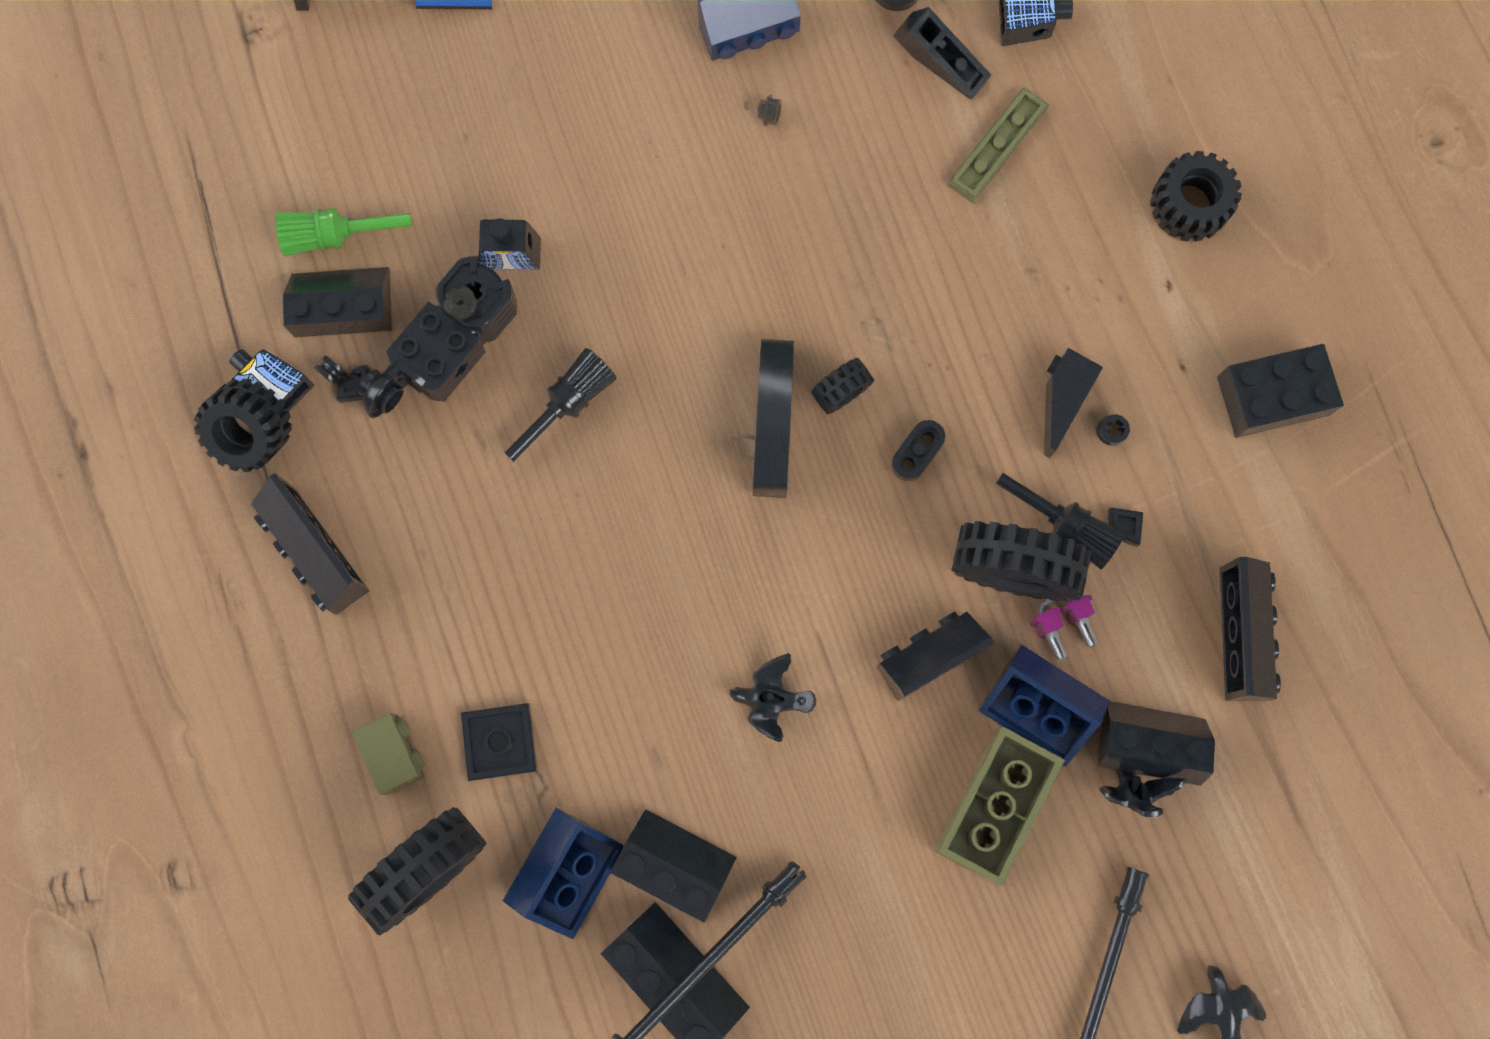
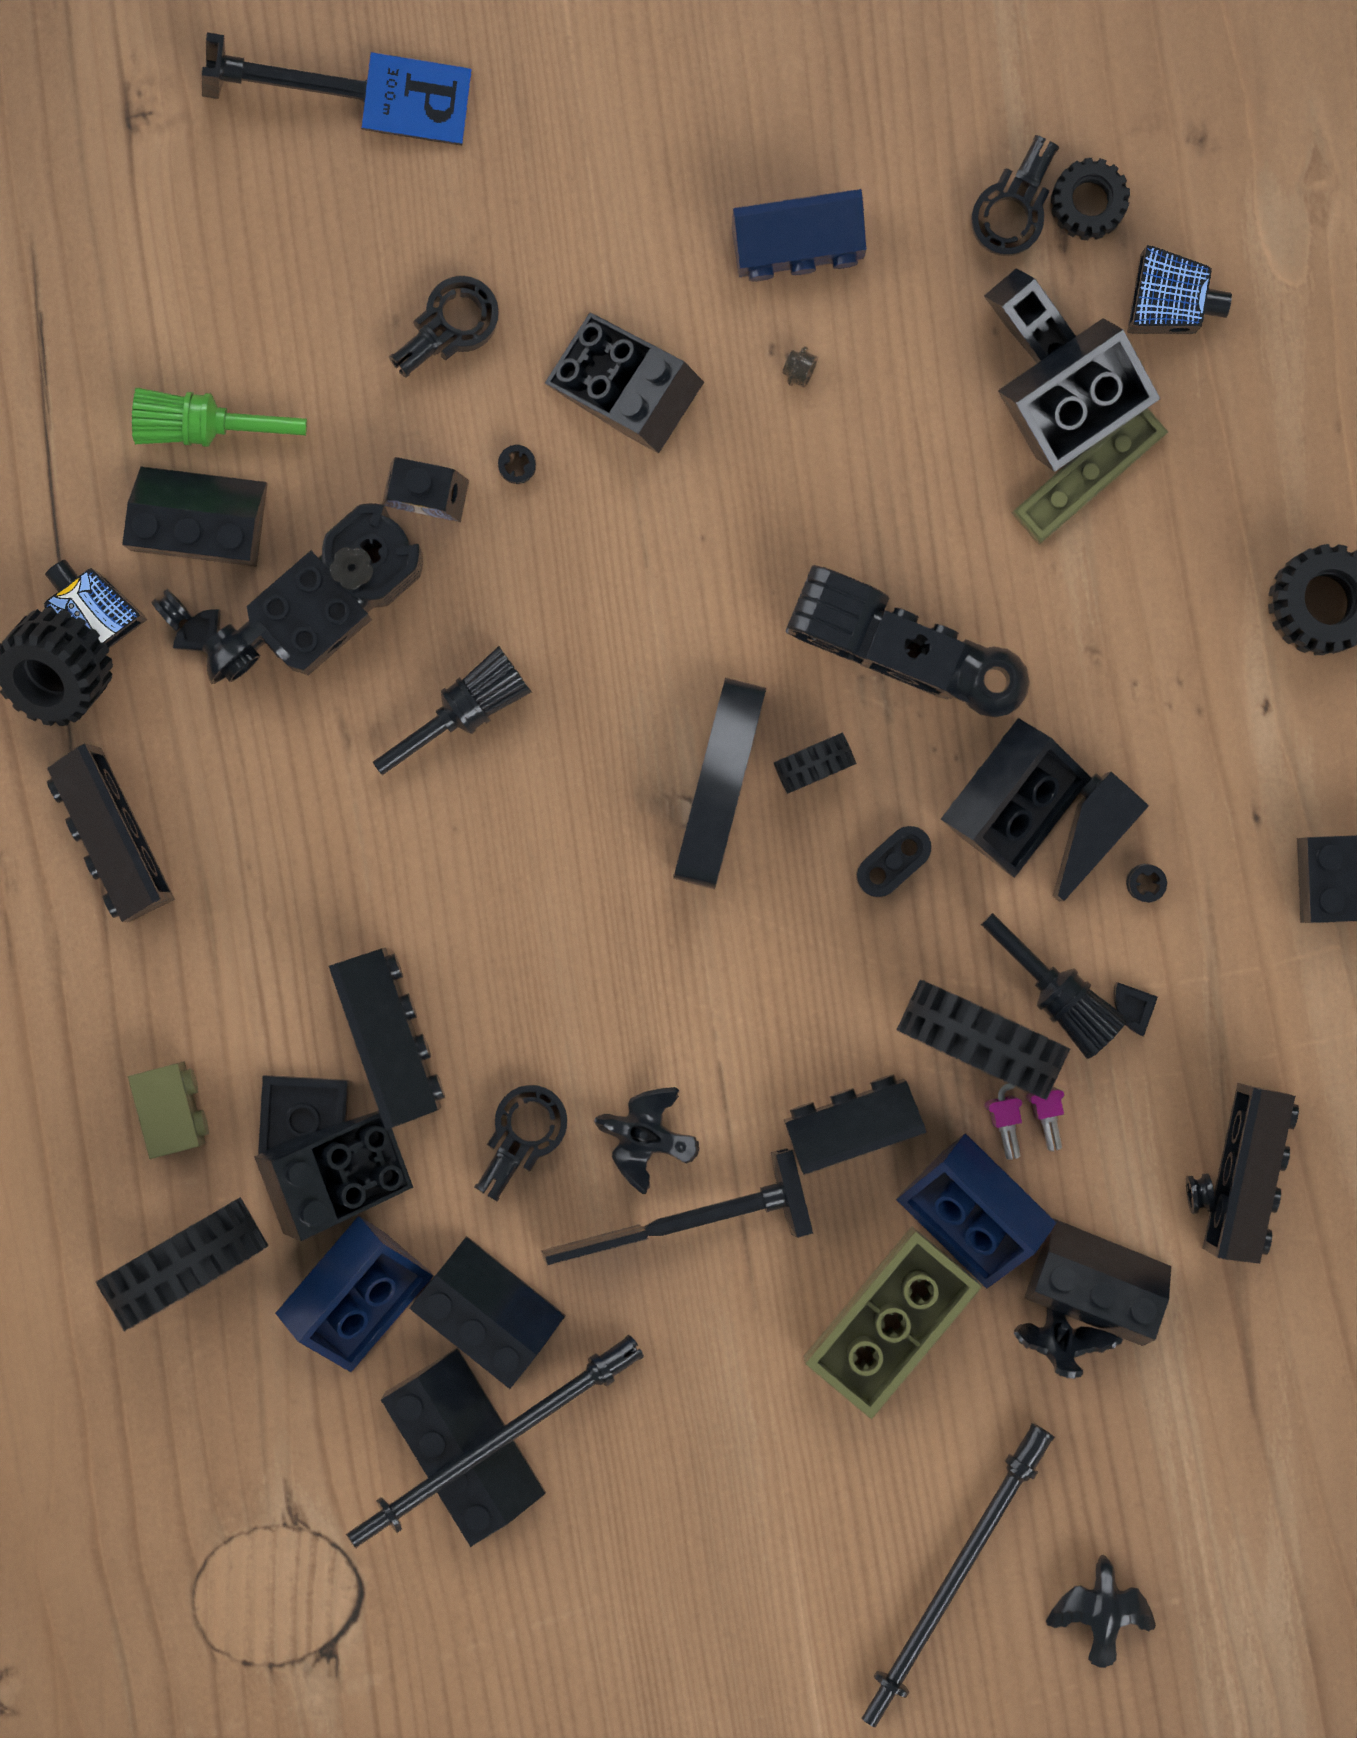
camera: 10 degrees right, 10 degrees up
(499, 138) = (428, 343): none -> black pin
(529, 778) = (332, 1174): none -> black slope
(552, 659) = (386, 1037): none -> black slope
(584, 220) = (504, 460): none -> black bush
(644, 144) = (625, 382): none -> black slope
(665, 740) = (504, 1163): none -> black pin
(848, 278) = (852, 623): none -> black brick
(891, 721) = (784, 1194): none -> black piece
(979, 84) = (1079, 394): none -> black brick
(1000, 383) = (1016, 797): none -> black slope
(1214, 656) = (1200, 1193): none -> black bush

